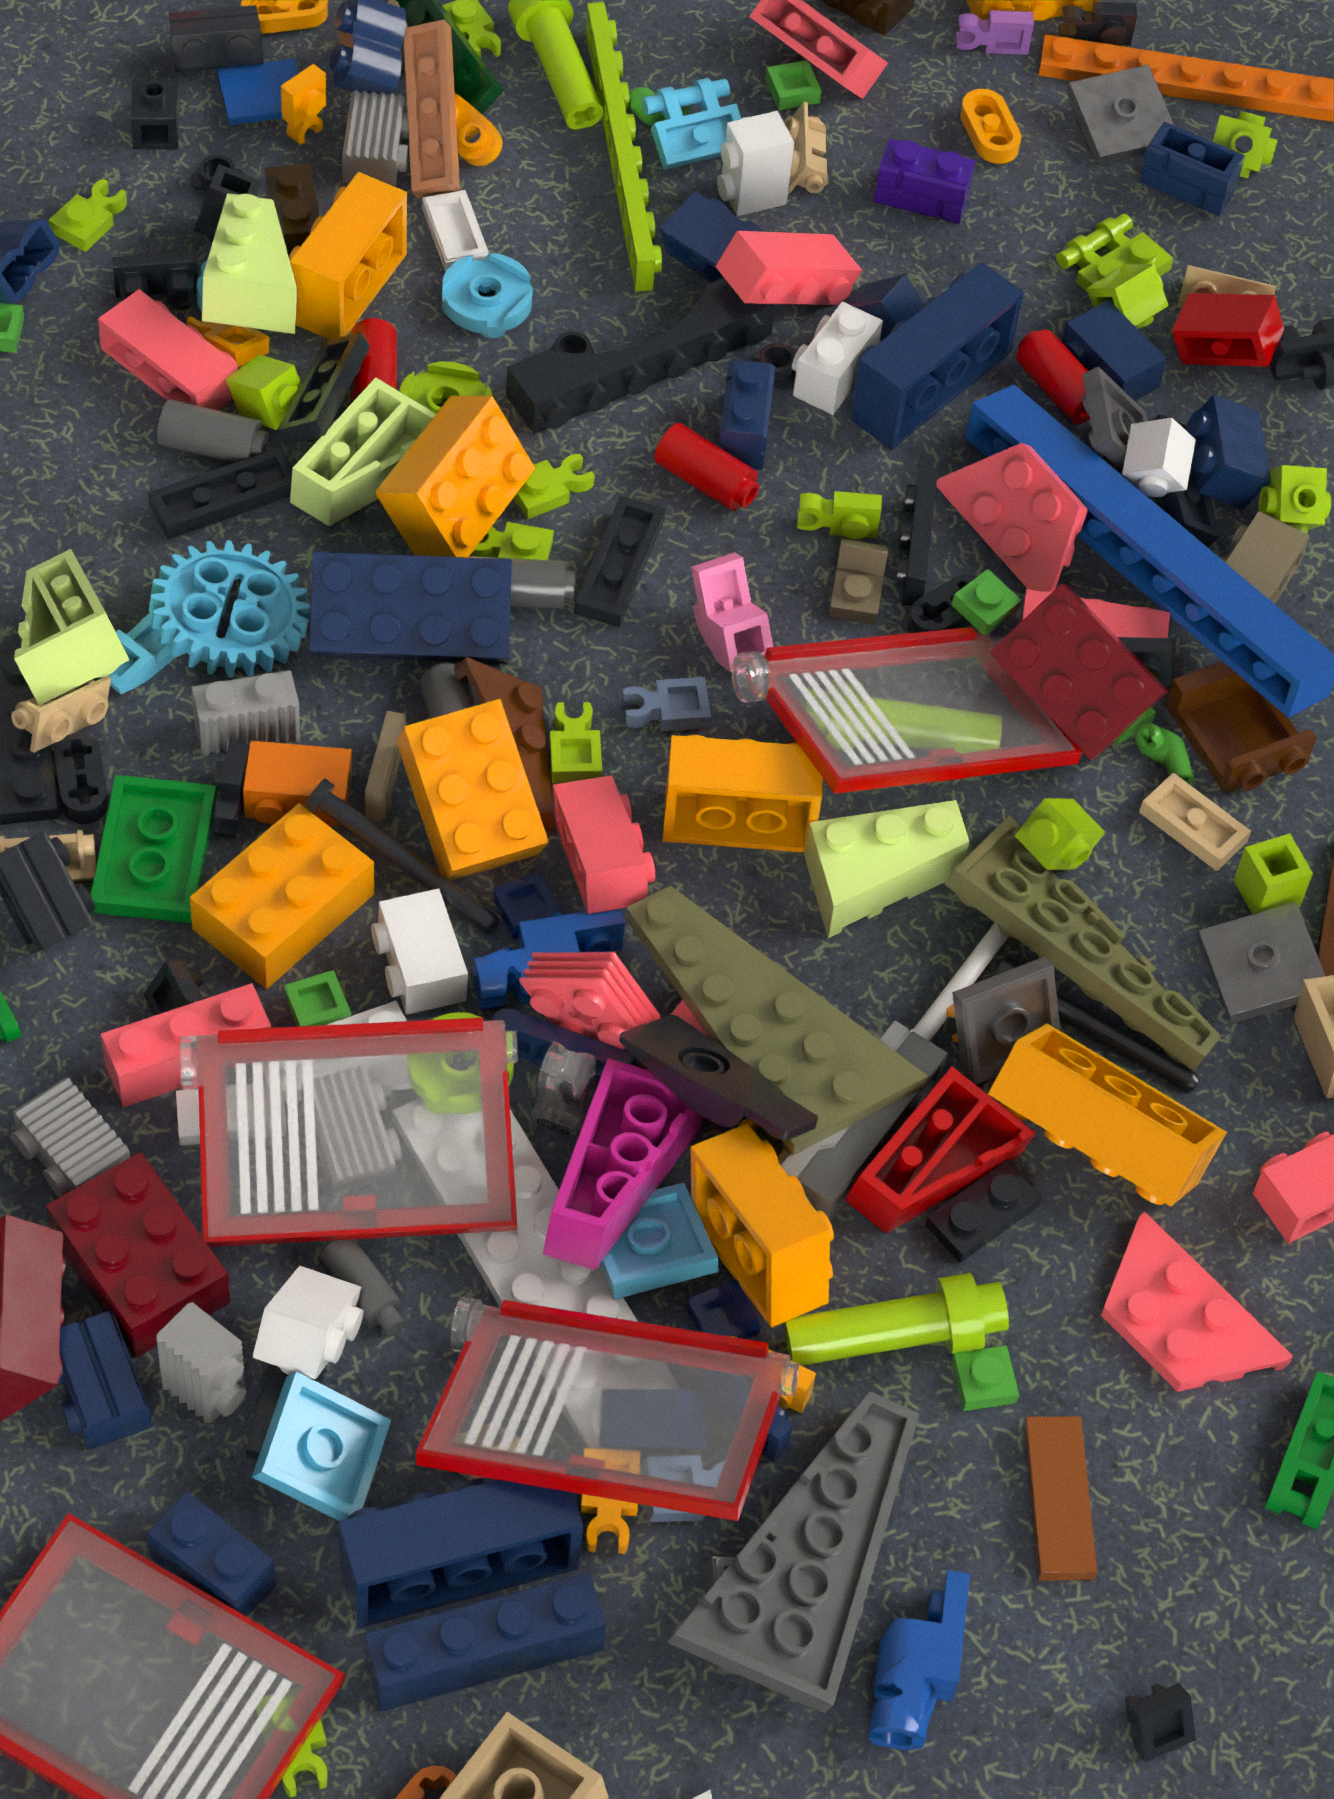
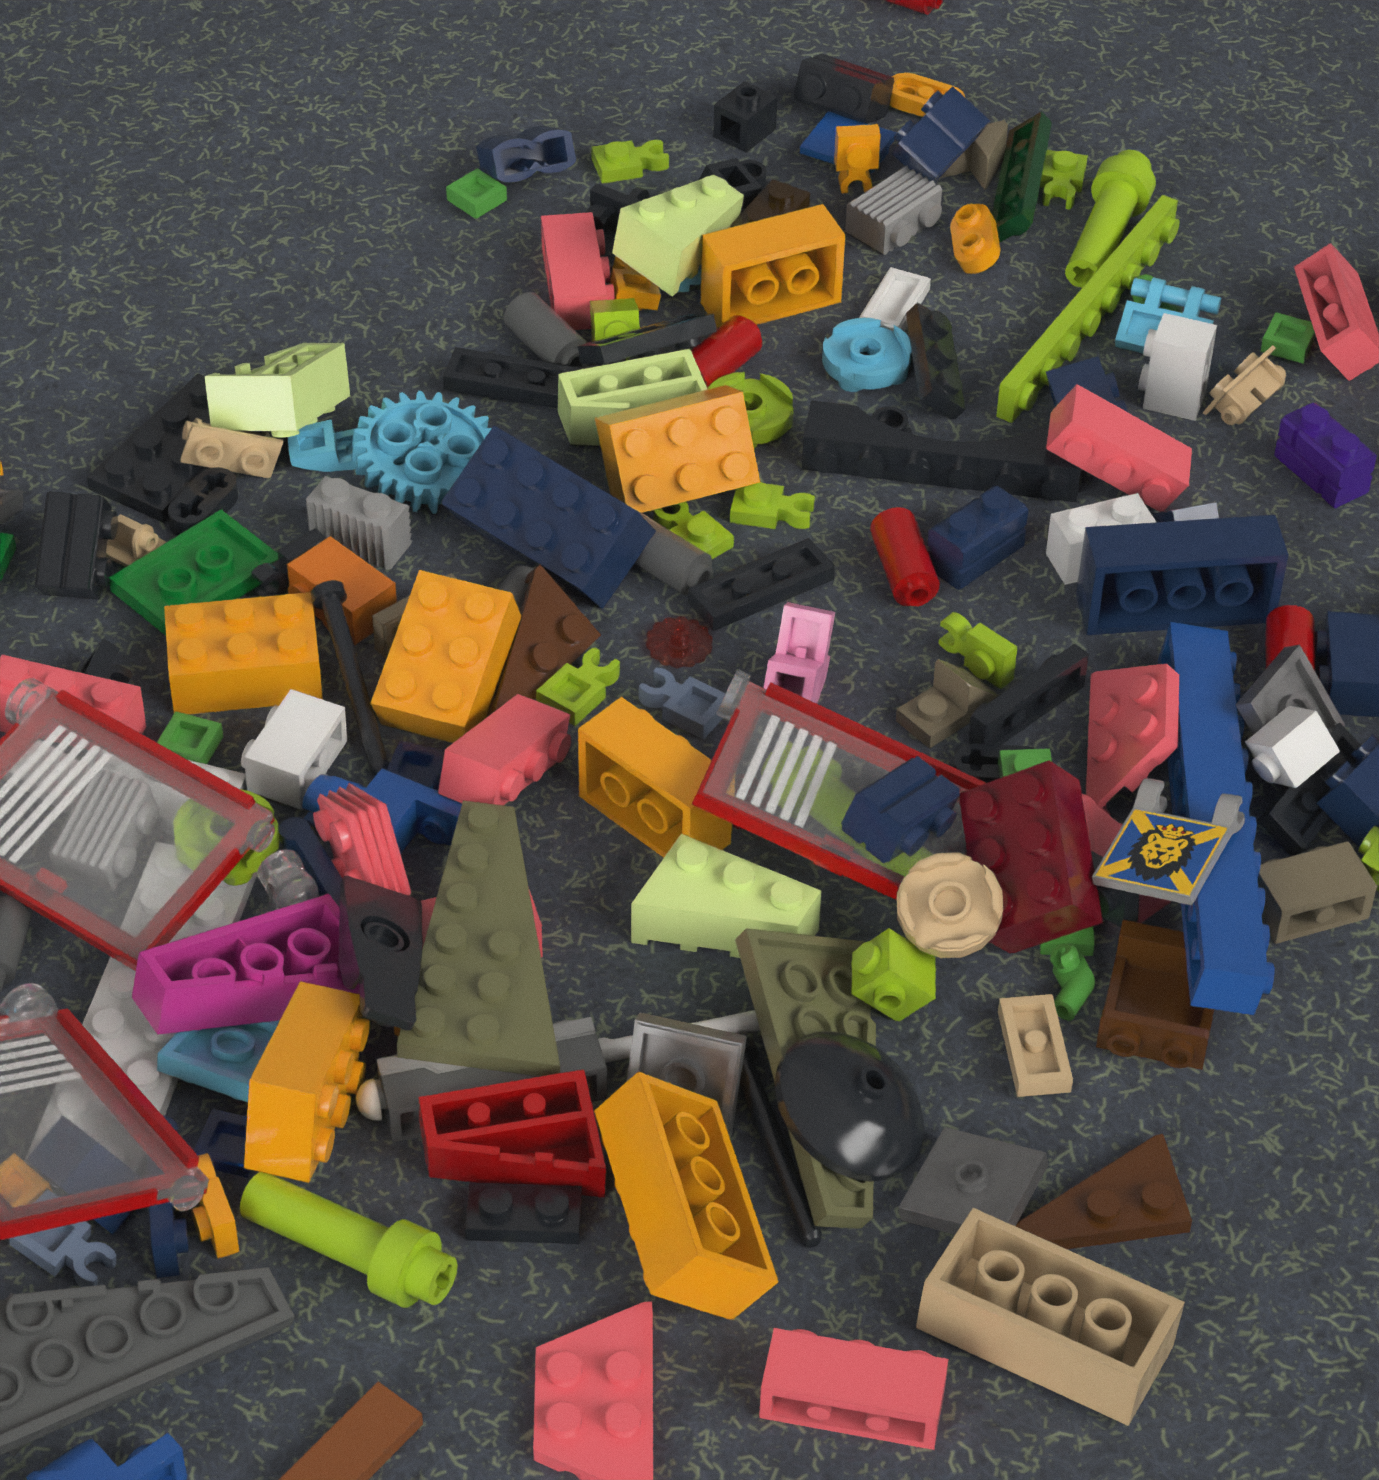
camera: 45 degrees right, 10 degrees down
(431, 109) = (951, 204): nougat plate -> none
(550, 267) = (935, 361): none -> black plate
(601, 654) = (679, 642): none -> clear red piece
(782, 358) = (1039, 518): black plate -> none
(967, 694) = (901, 810): none -> dark blue brick
(985, 1378) = (383, 1333): bright green plate -> none
(1070, 750) = (949, 905): none -> tan tile
(1134, 959) = (849, 1105): none -> black dish
(1174, 605) = (1166, 852): none -> flag
(1272, 874) = (1048, 1117): lime brick -> none

